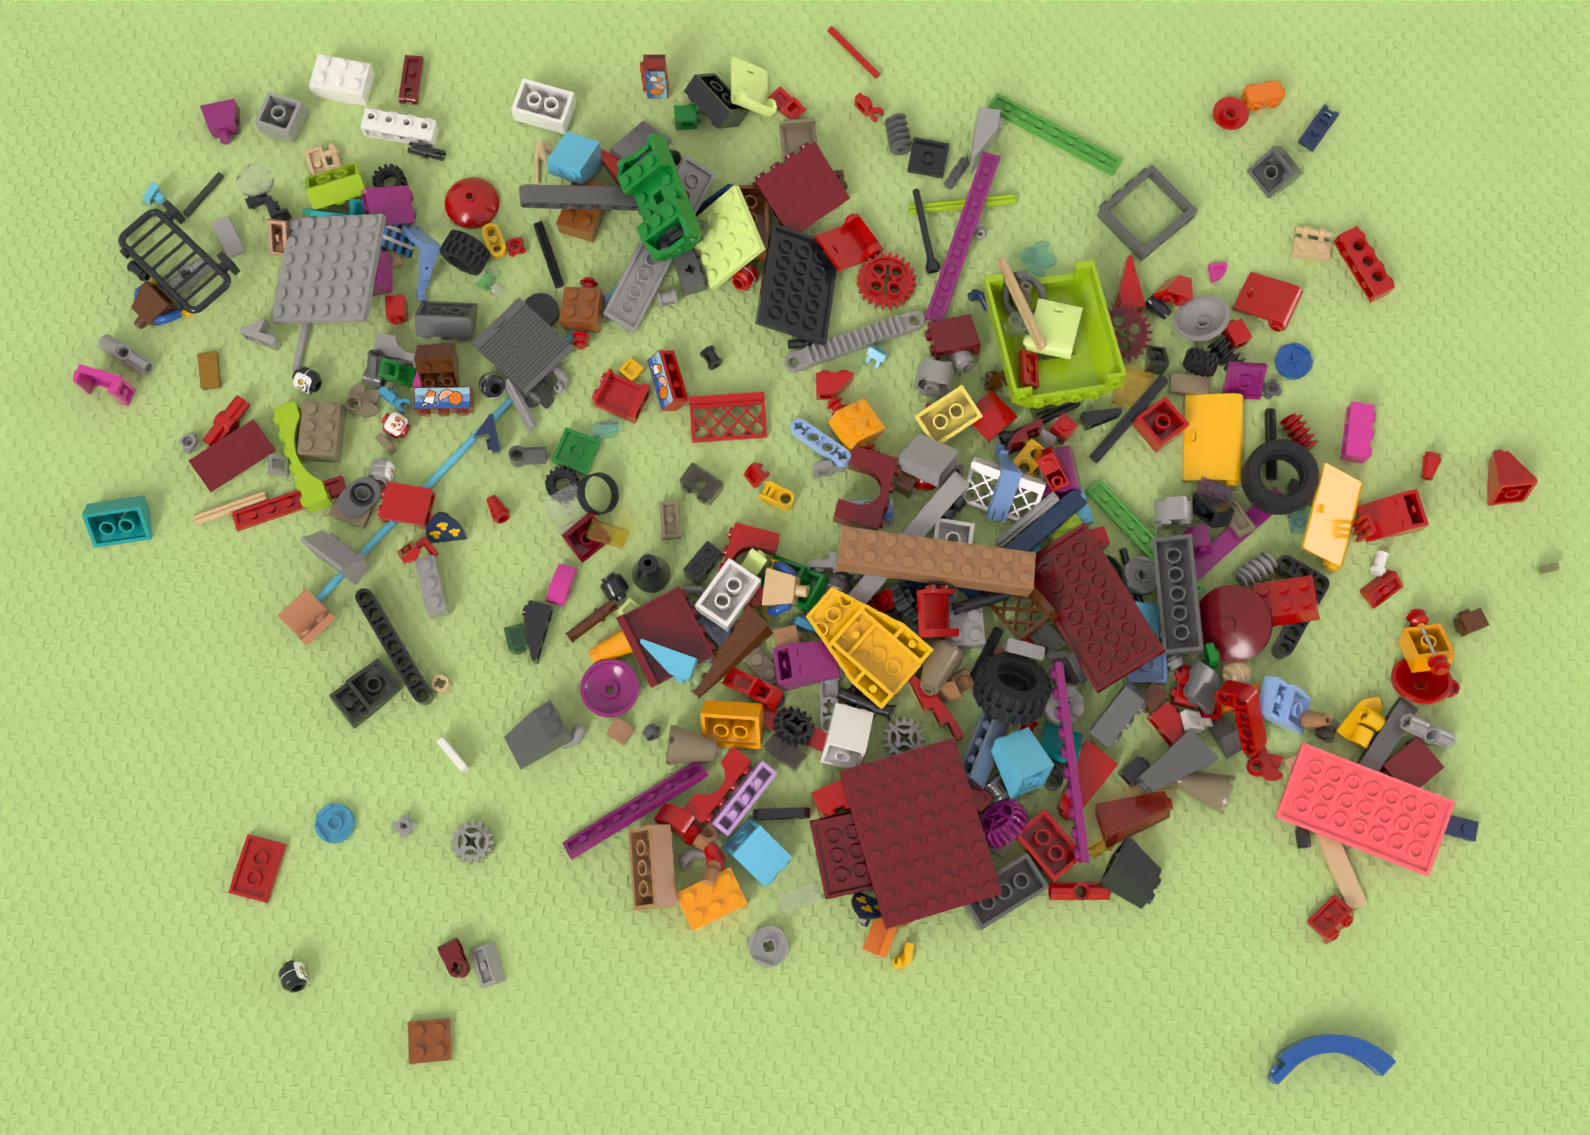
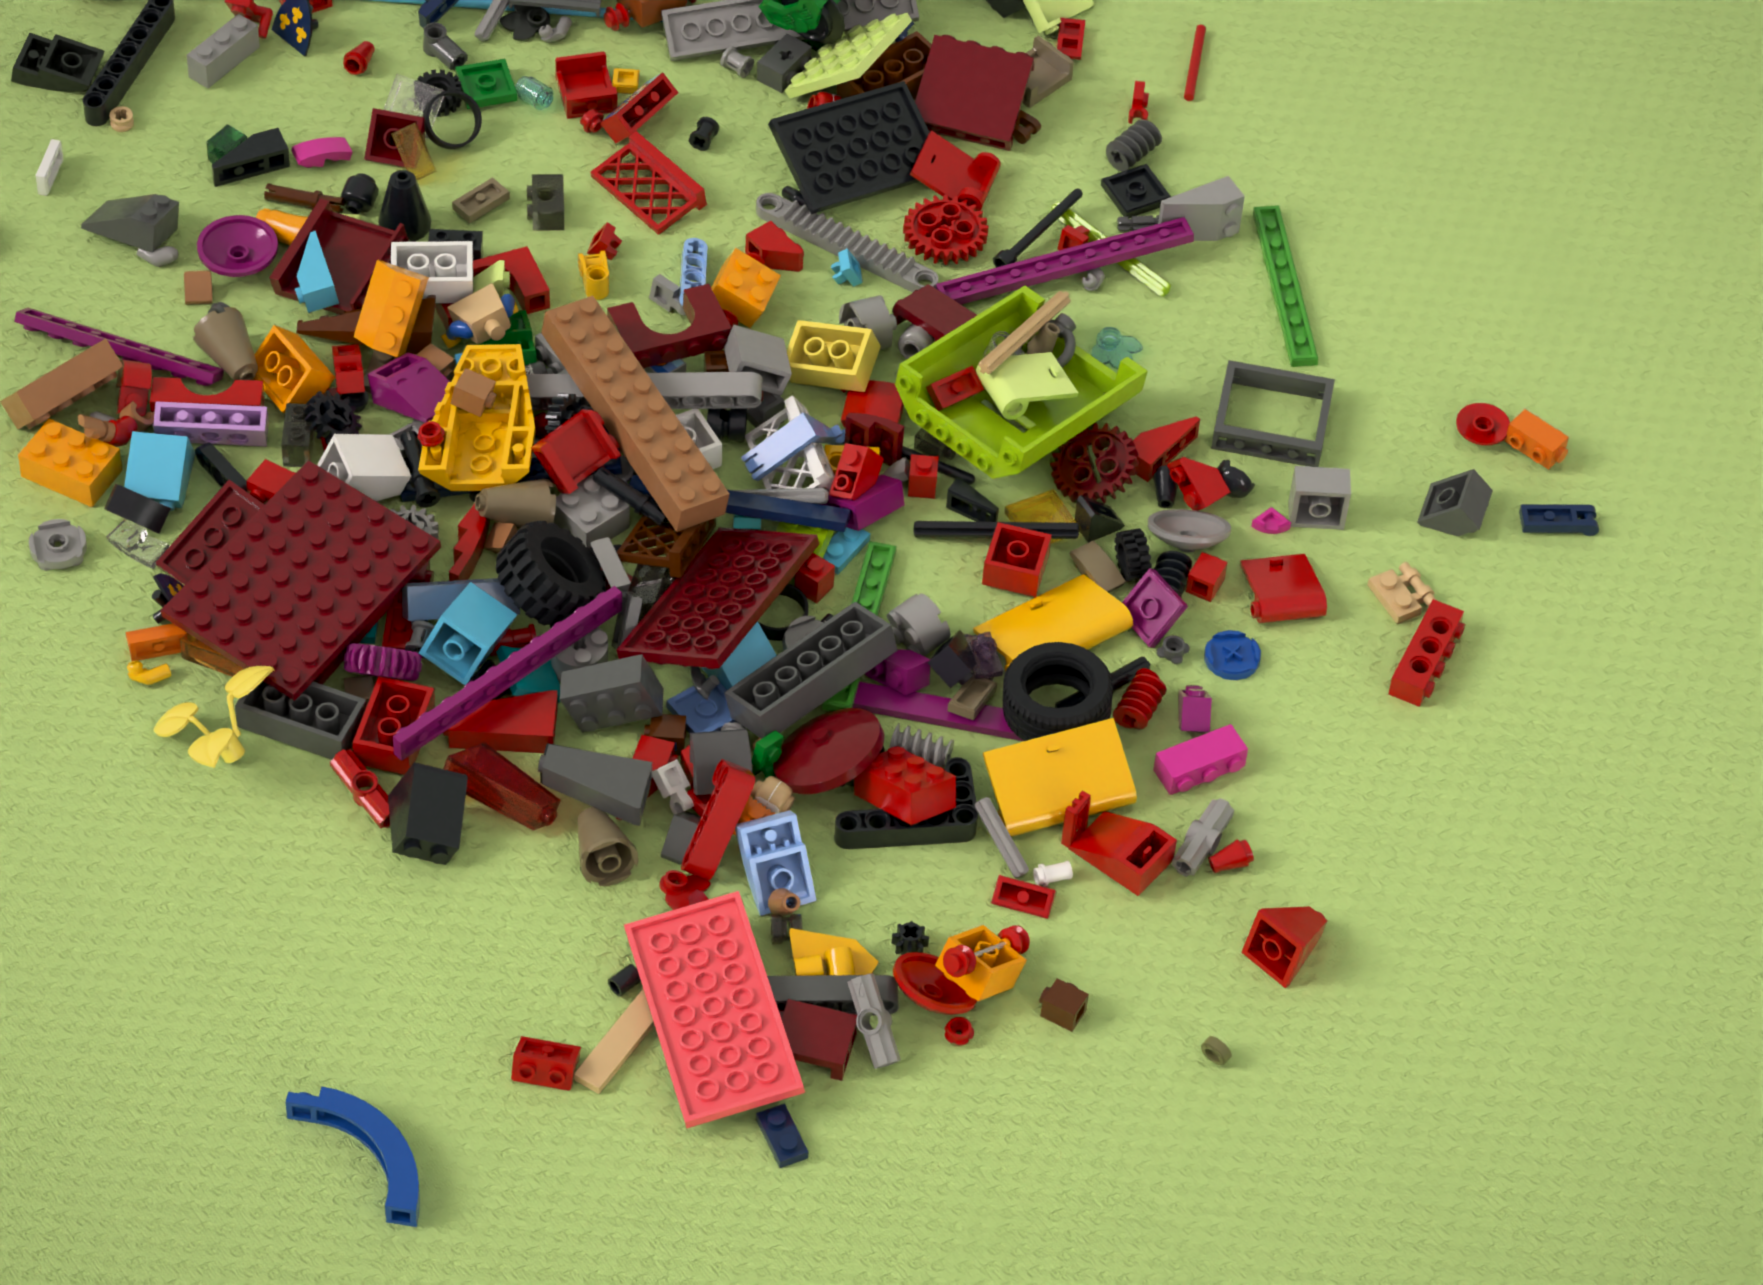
camera: 50 degrees right, 25 degrees down
(654, 413) = (591, 121): none -> red plate
(743, 640) = (390, 308): none -> light orange slope
(781, 886) = (137, 508): none -> black slope
(853, 640) = (474, 393): none -> medium nougat brick
(860, 685) = (431, 434): none -> red plate
(947, 220) = (1073, 237): none -> red tile
(1012, 966) = (223, 741): none -> light yellow plant
(1181, 268) = (1236, 480): none -> black hair
(1229, 236) = (1319, 497): none -> light grey brick
(1322, 409) = (1194, 709): none -> magenta slope
(1345, 574) = (1001, 837): none -> light grey axle
(1379, 665) = (910, 938): none -> black gear
(1408, 468) = (1203, 837): none -> light grey piece

